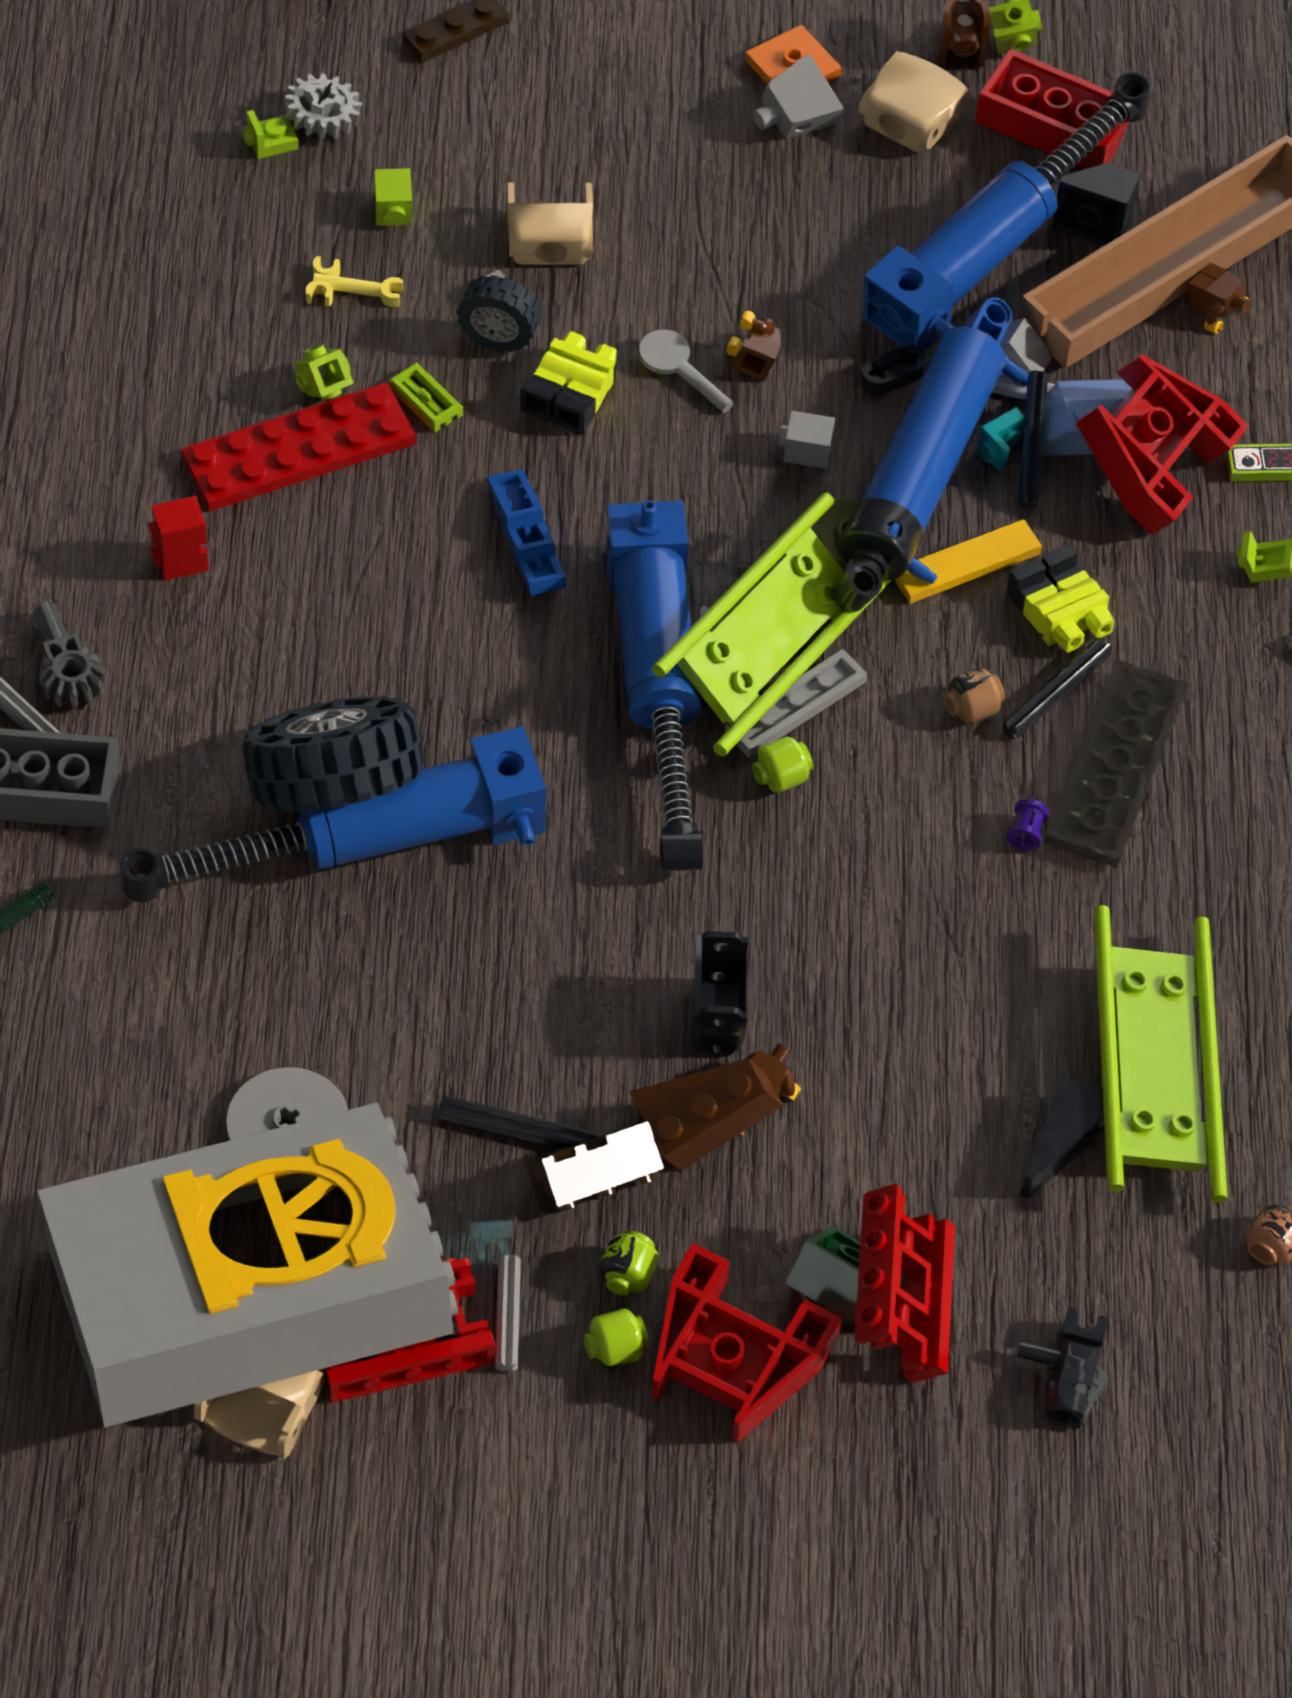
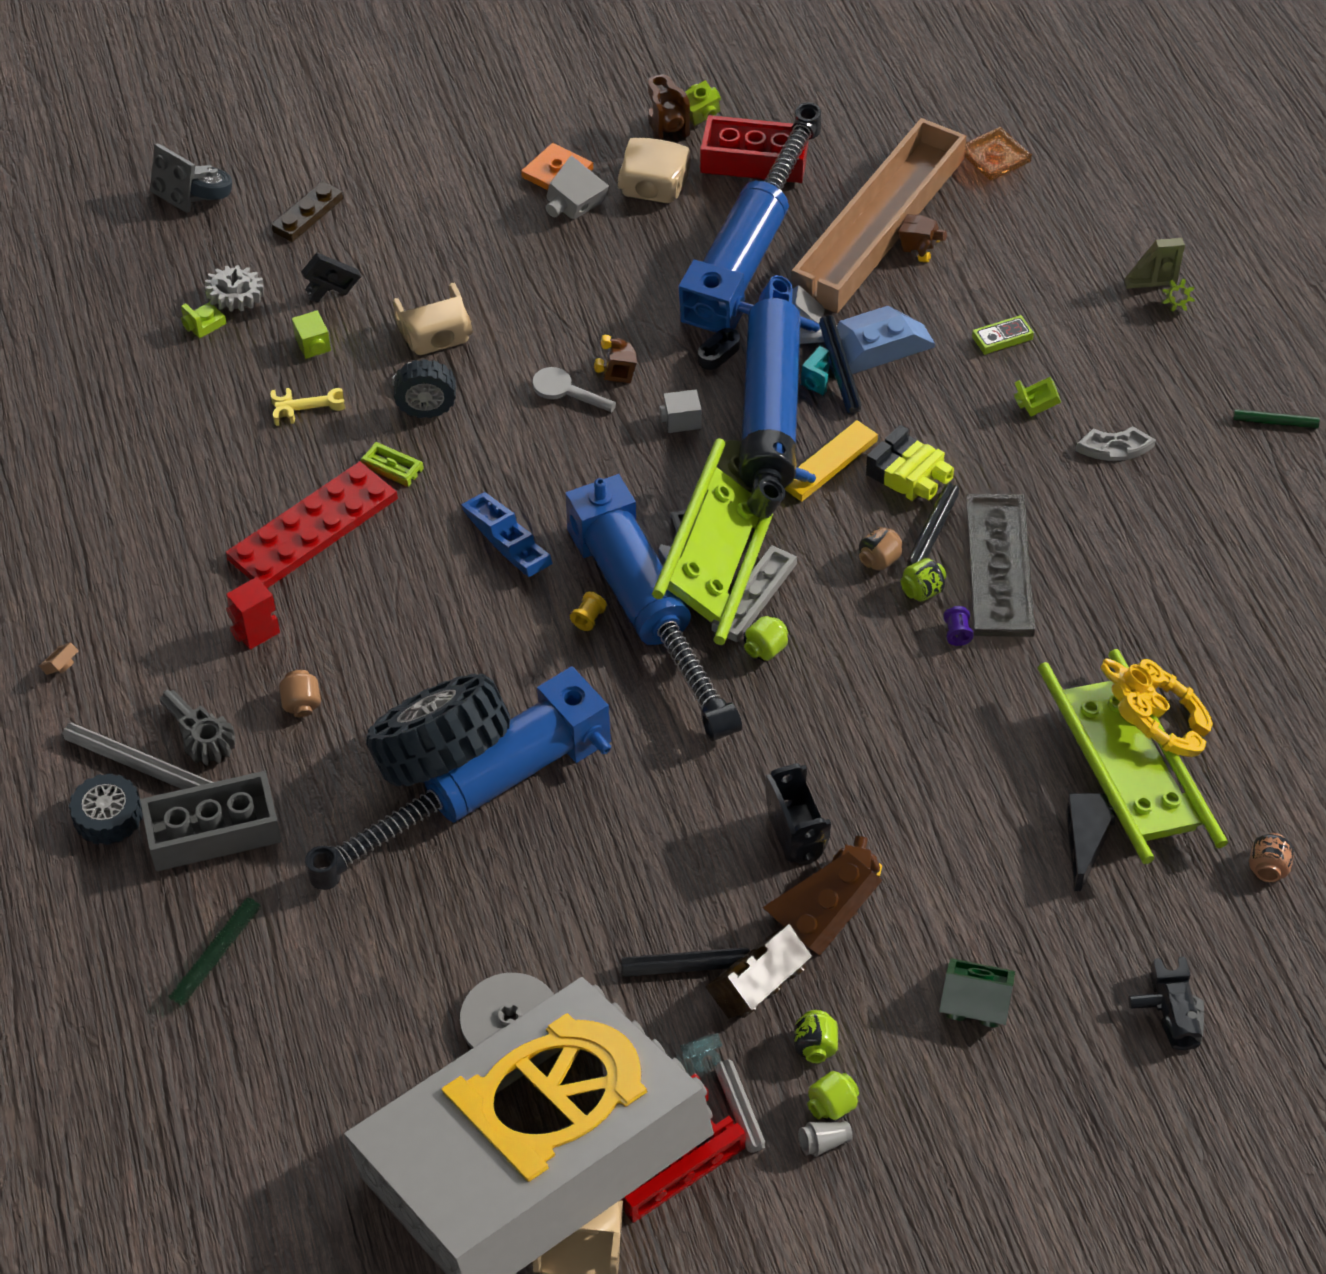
camera: 15 degrees left, 5 degrees down
(199, 654) = (299, 693): none -> medium nougat head
(334, 372) = (311, 467): lime brick -> none
(443, 125) = (328, 275): none -> black hinge
(570, 382) = (494, 420): hips -> none
(583, 661) = (590, 608): none -> yellow bush
(586, 1380) = (823, 1136): none -> light grey cone
(732, 1352) = (922, 1076): red wedge -> none
(922, 1313) = (1031, 981): red fence -> none
(1010, 752) = (923, 579): none -> lime head
(1096, 203) = (812, 198): black slope -> none
(1151, 432) = (923, 334): red wedge -> none
(1201, 982) = (1138, 699): none -> yellow piece

